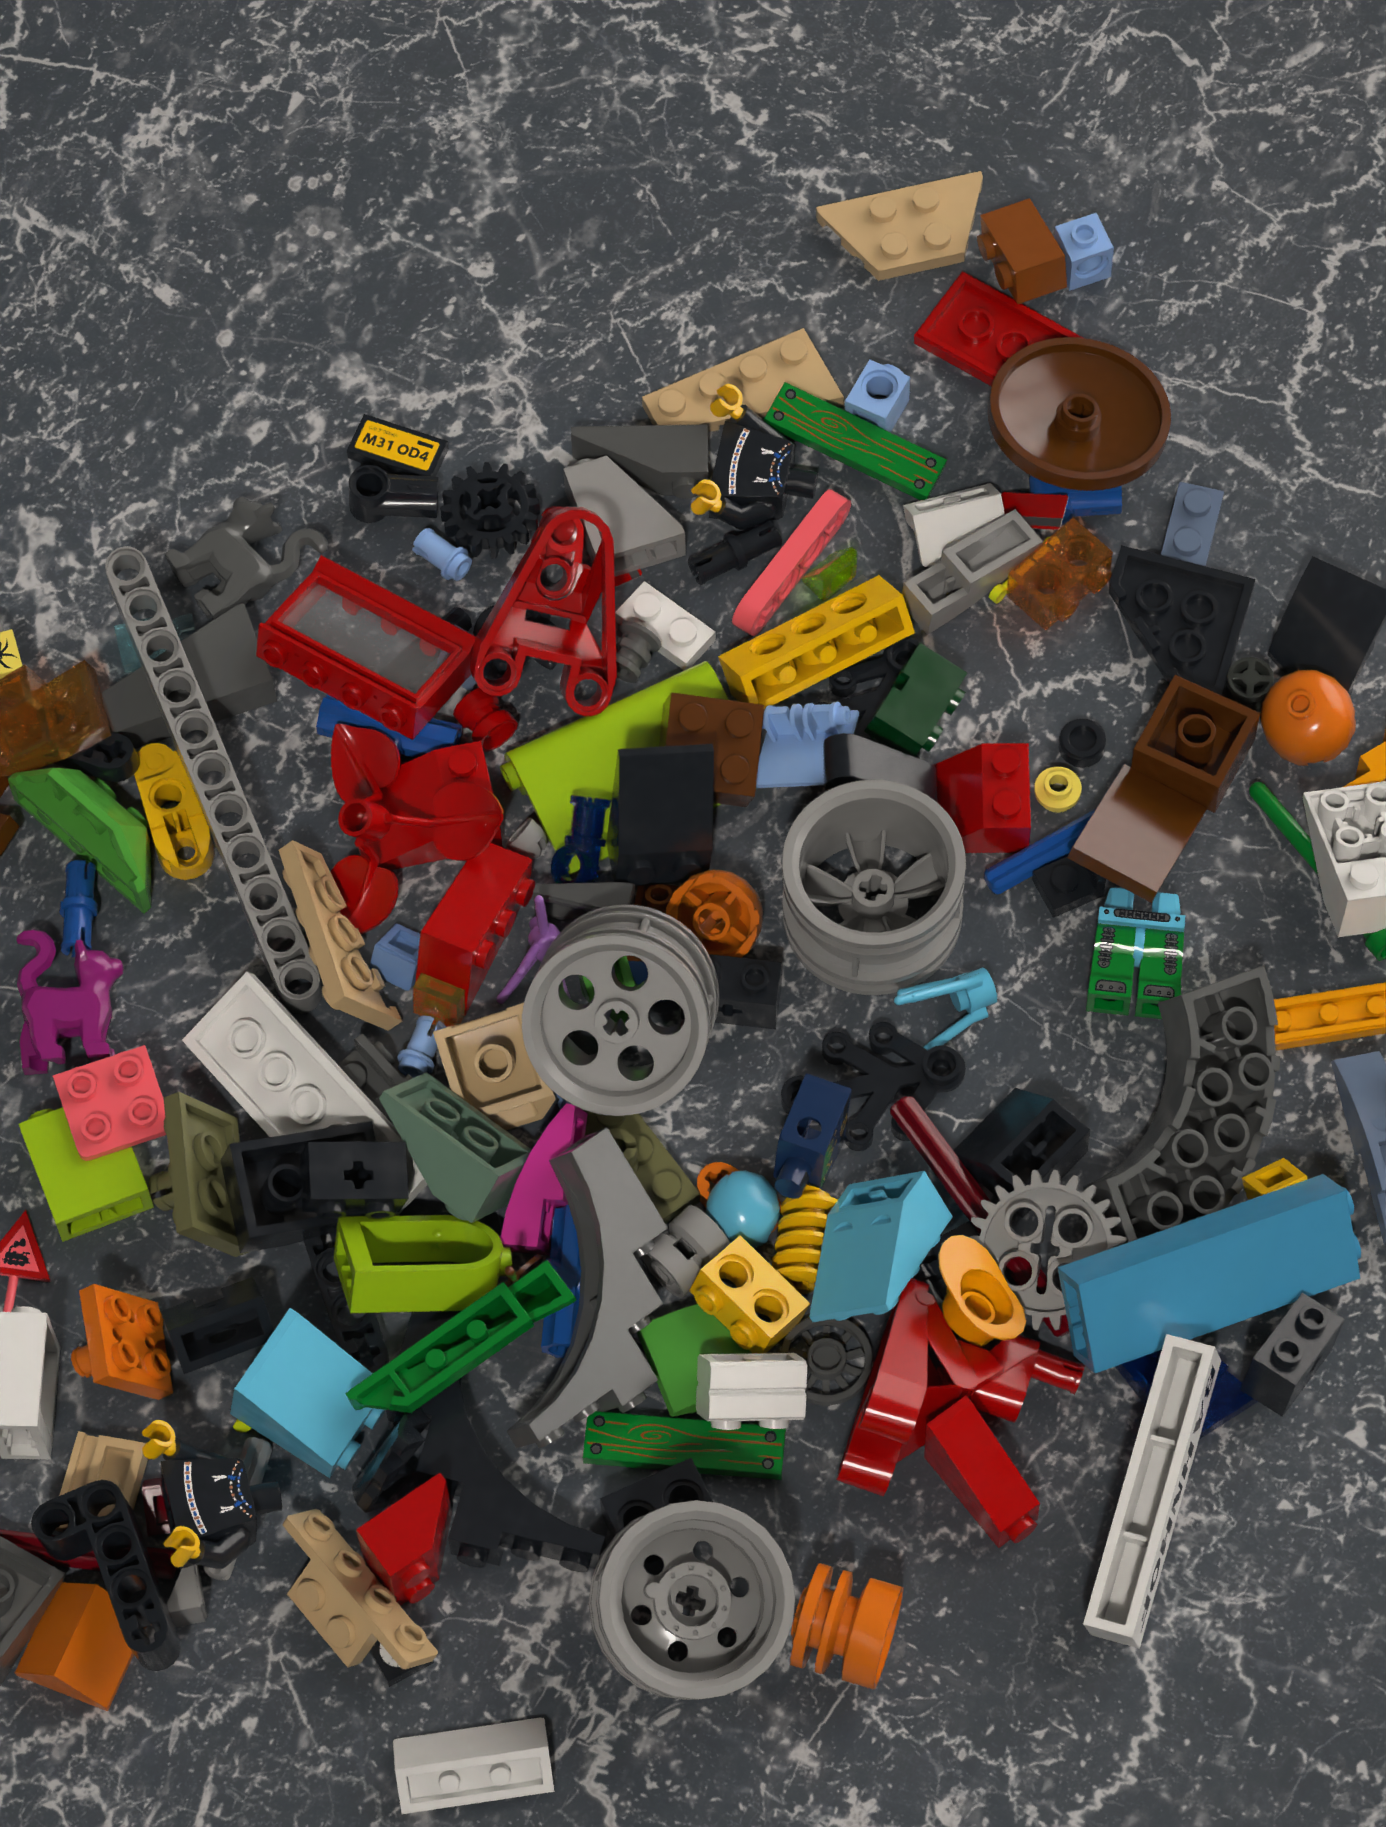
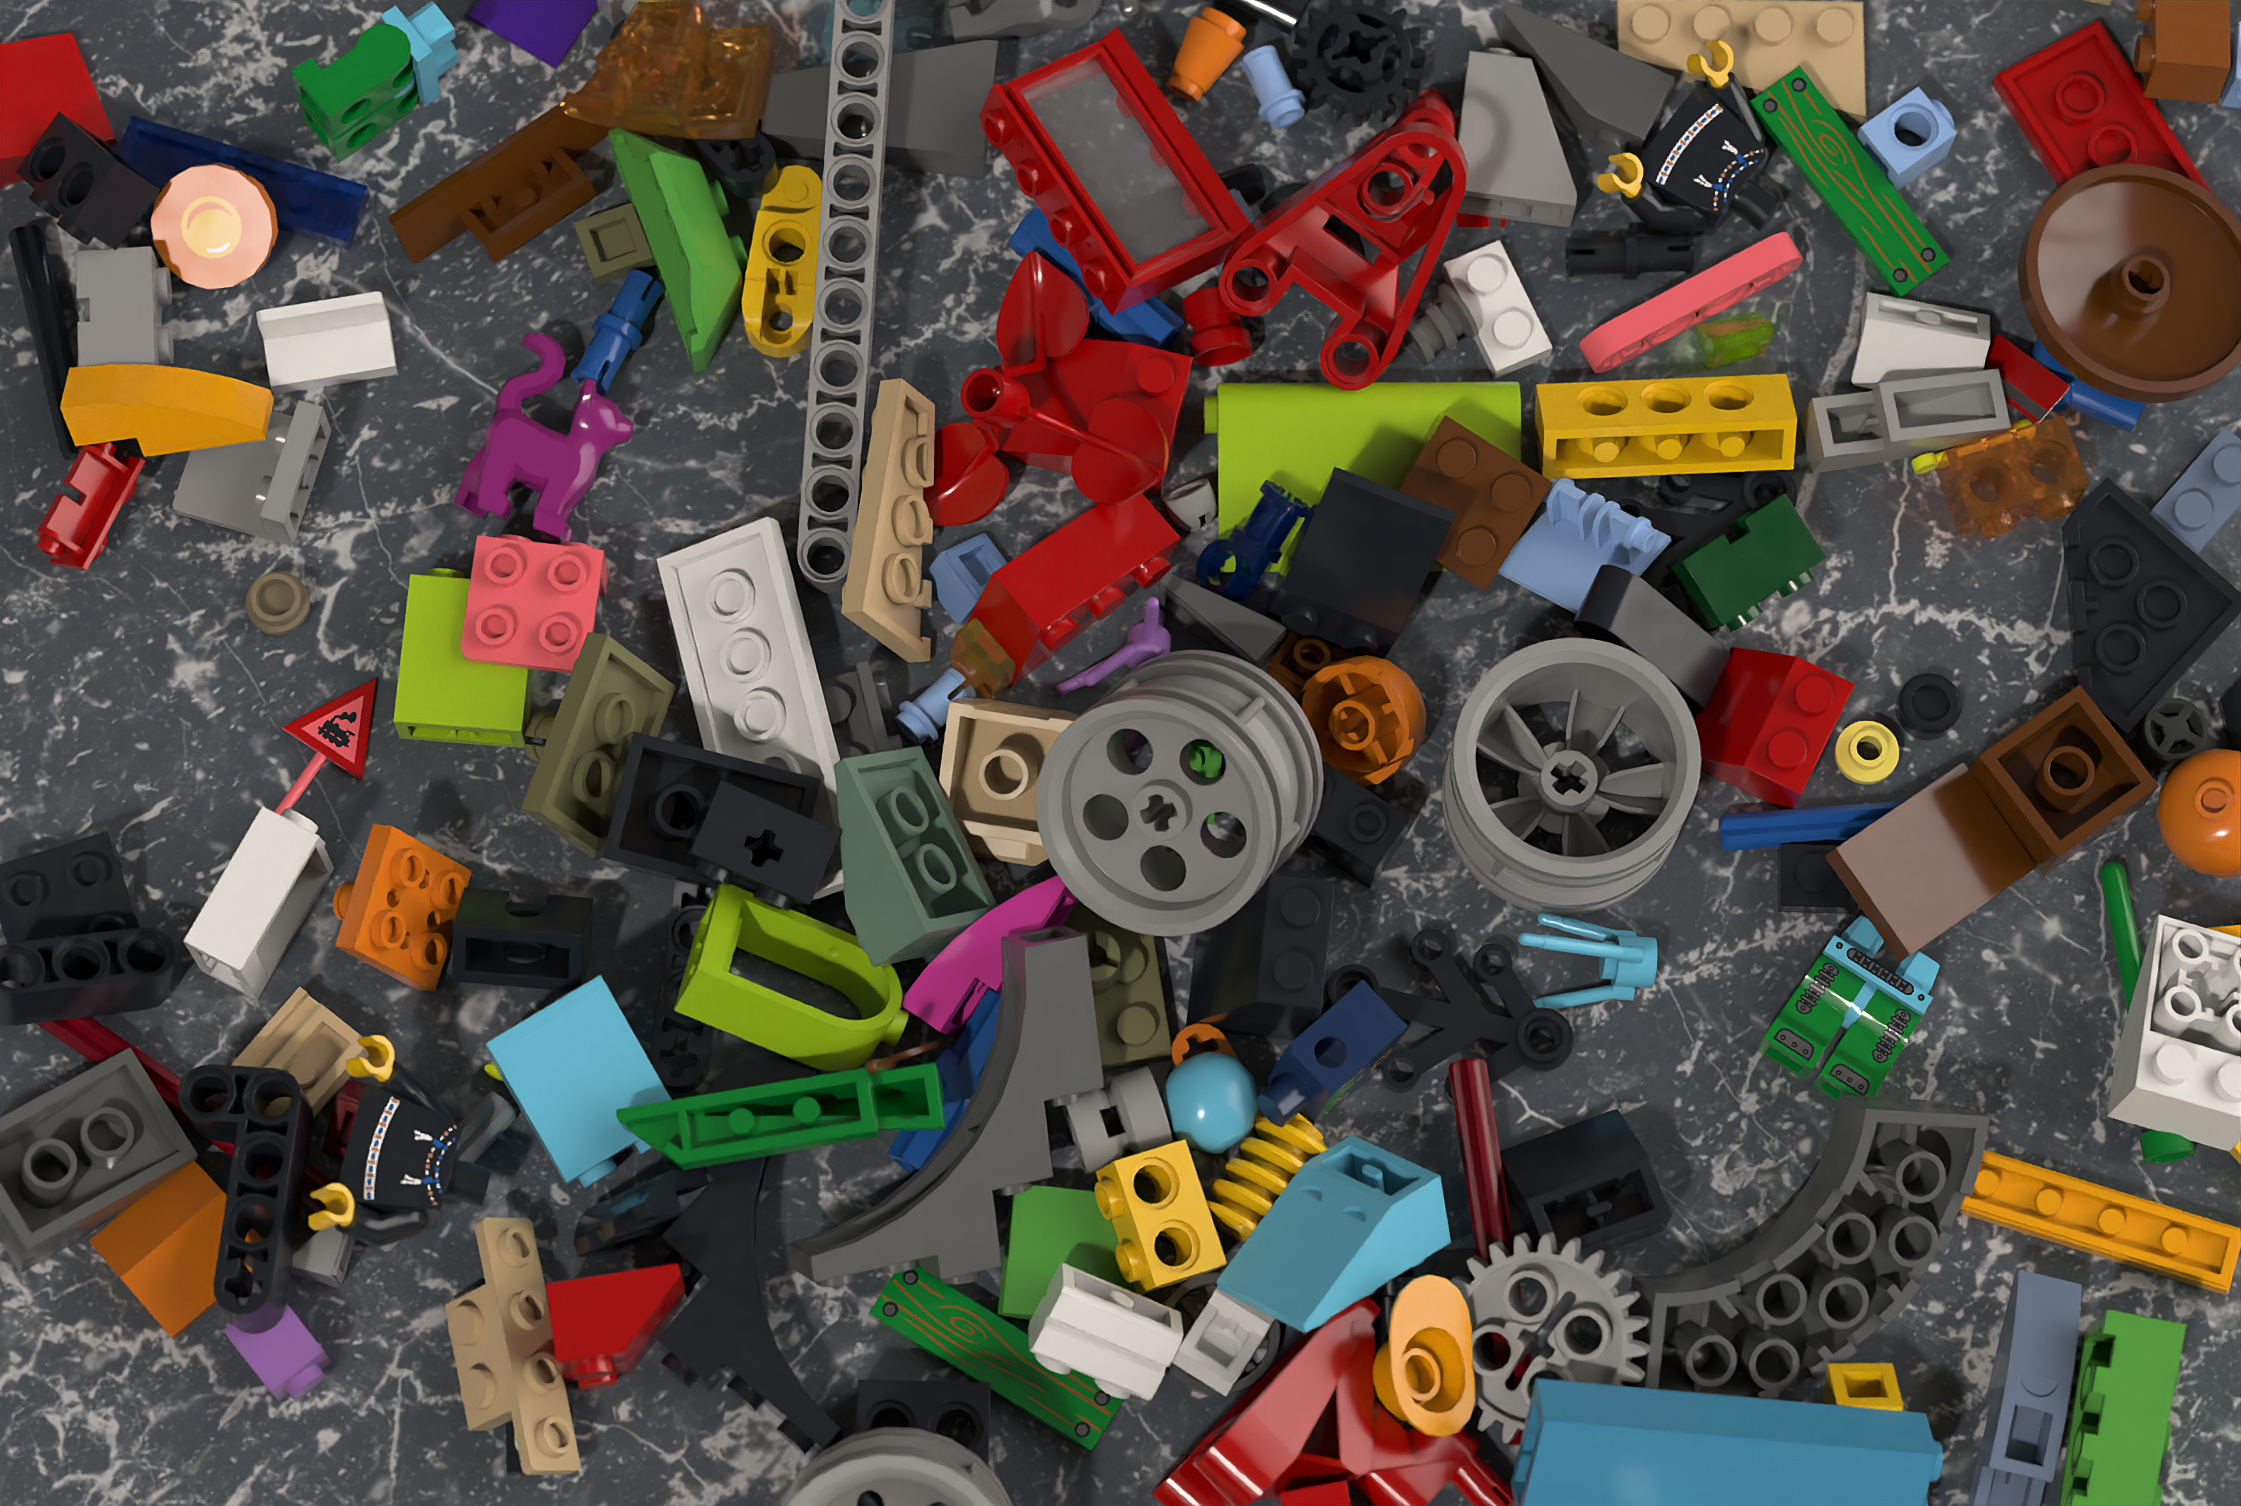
camera: 20 degrees right, 10 degrees up
(46, 853) = (613, 244): none -> olive plate
(191, 1681) = (283, 1357): none -> medium lavender brick
(386, 551) = (1205, 53): none -> orange cone
(734, 1099) = (1265, 962): none -> black slope
(834, 1354) = (1222, 1341): none -> white slope

